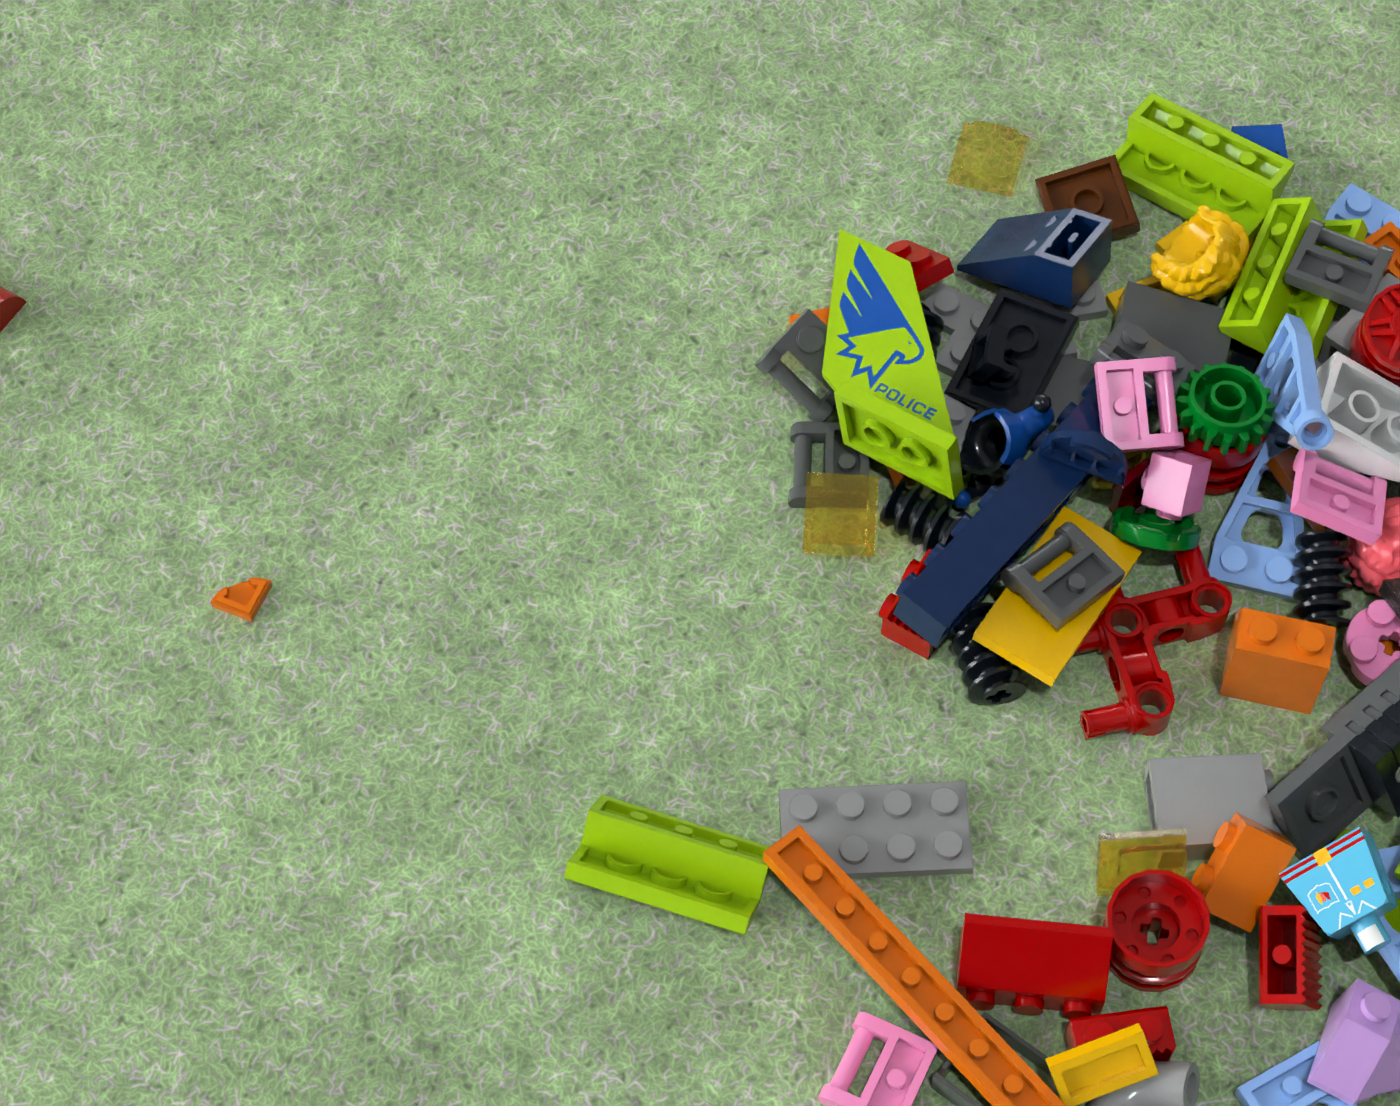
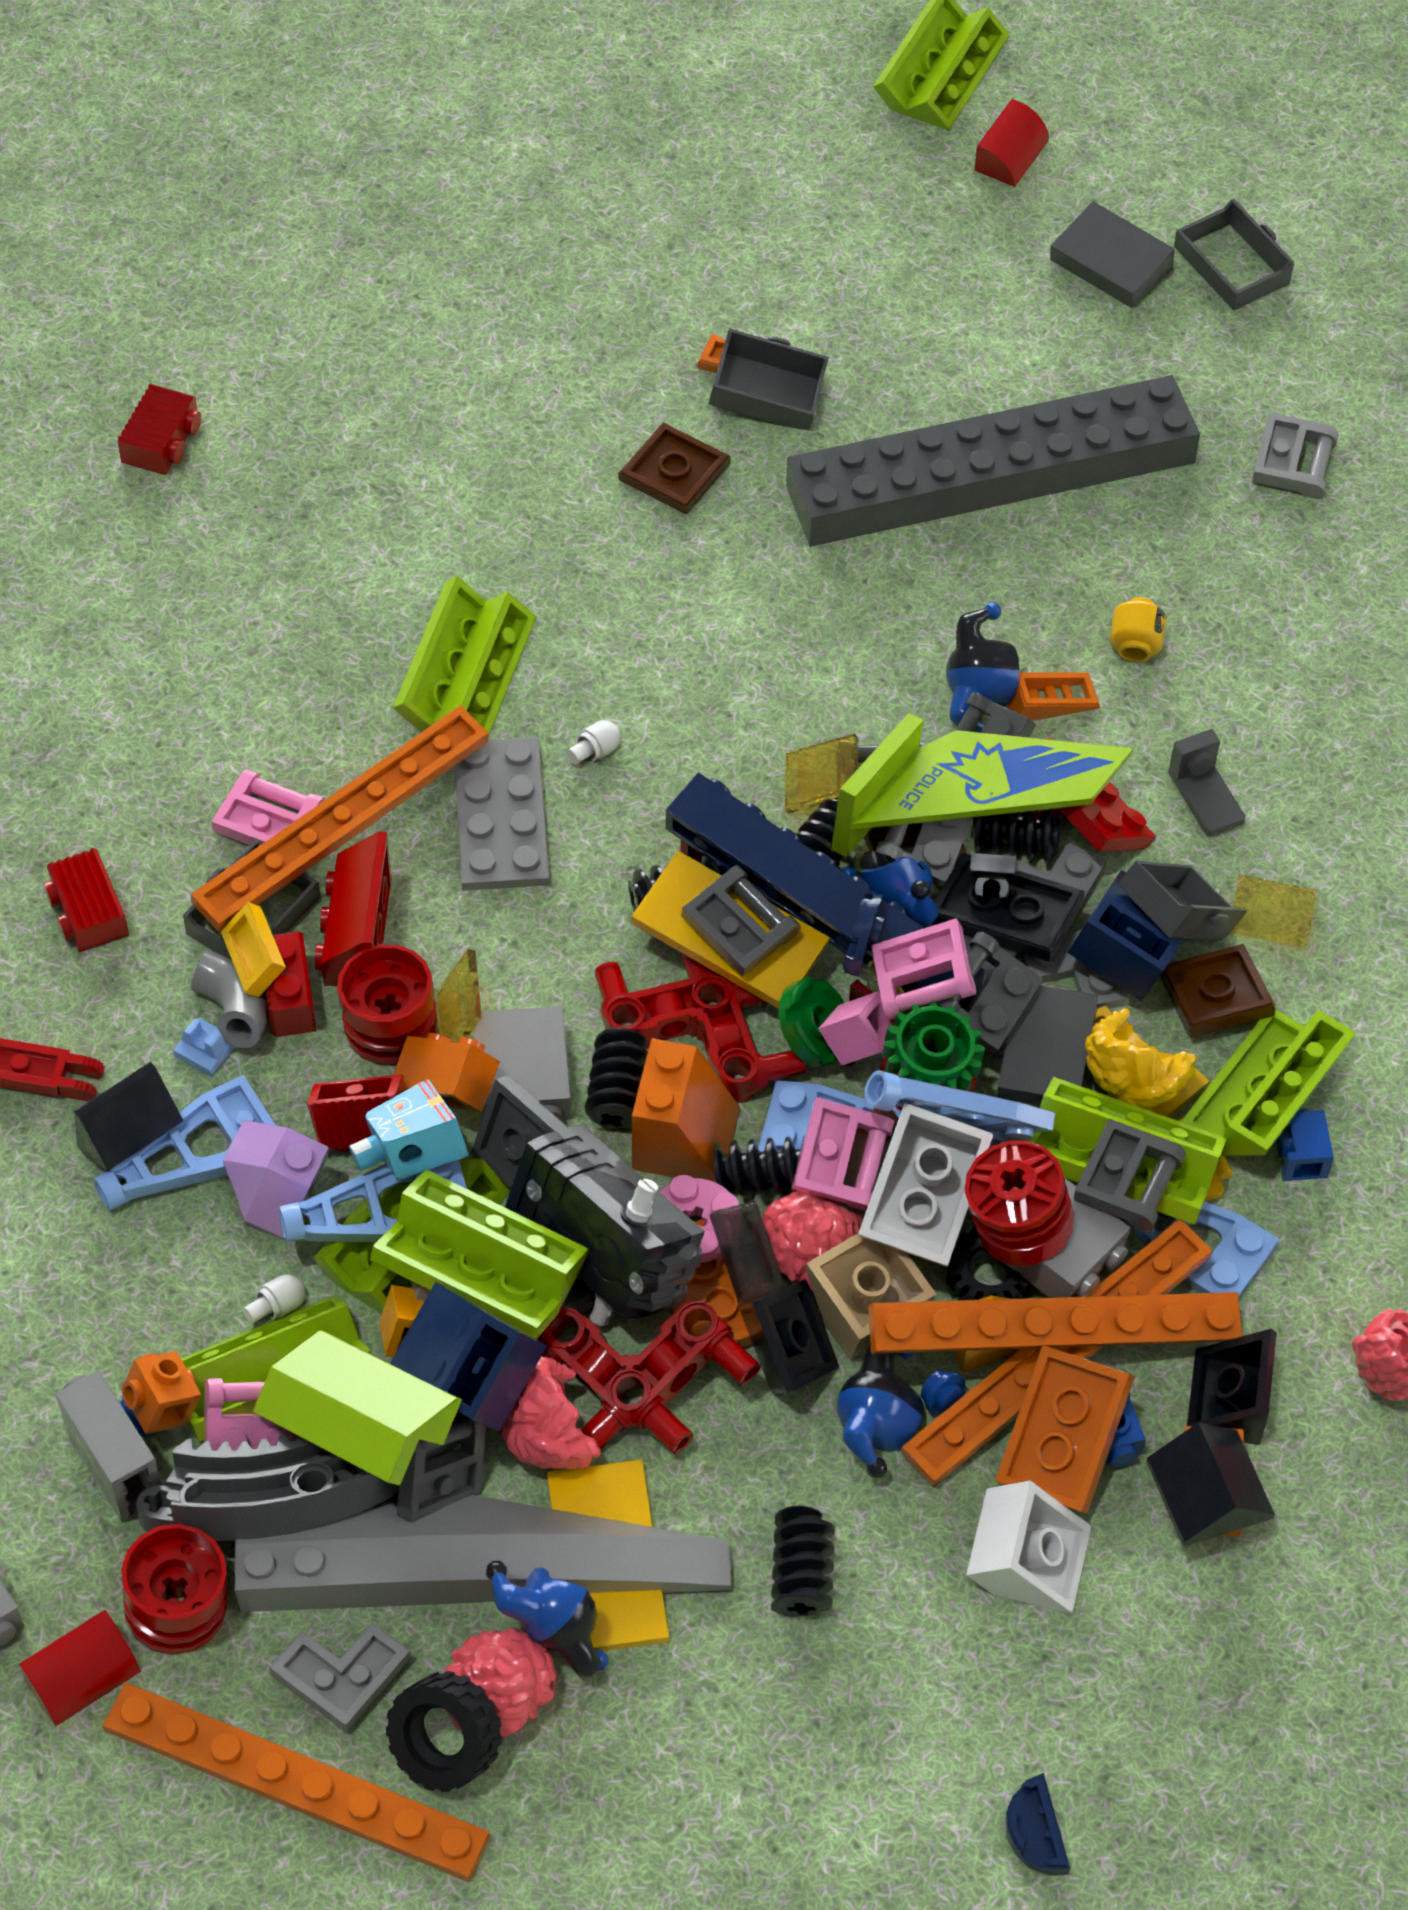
camera: 85 degrees right, 5 degrees down
(150, 214) = (1112, 254): none -> dark grey container
(153, 83) = (1259, 238): none -> dark grey container
(295, 544) = (768, 380): none -> dark grey container
(401, 648) = (674, 468): none -> reddish brown tile
(433, 345) = (991, 460): none -> dark grey brick
(438, 95) = (1282, 450): none -> light grey plate
(661, 230) = (1138, 629): none -> yellow head
(715, 363) = (980, 665): none -> piece
(733, 339) = (1029, 704): none -> orange slope
(782, 730) = (599, 738): none -> white cylinder
(854, 196) = (1201, 784): none -> dark grey bracket
(1011, 209) = (1180, 901): none -> dark grey container
(1226, 714) = (615, 1077): none -> black piece

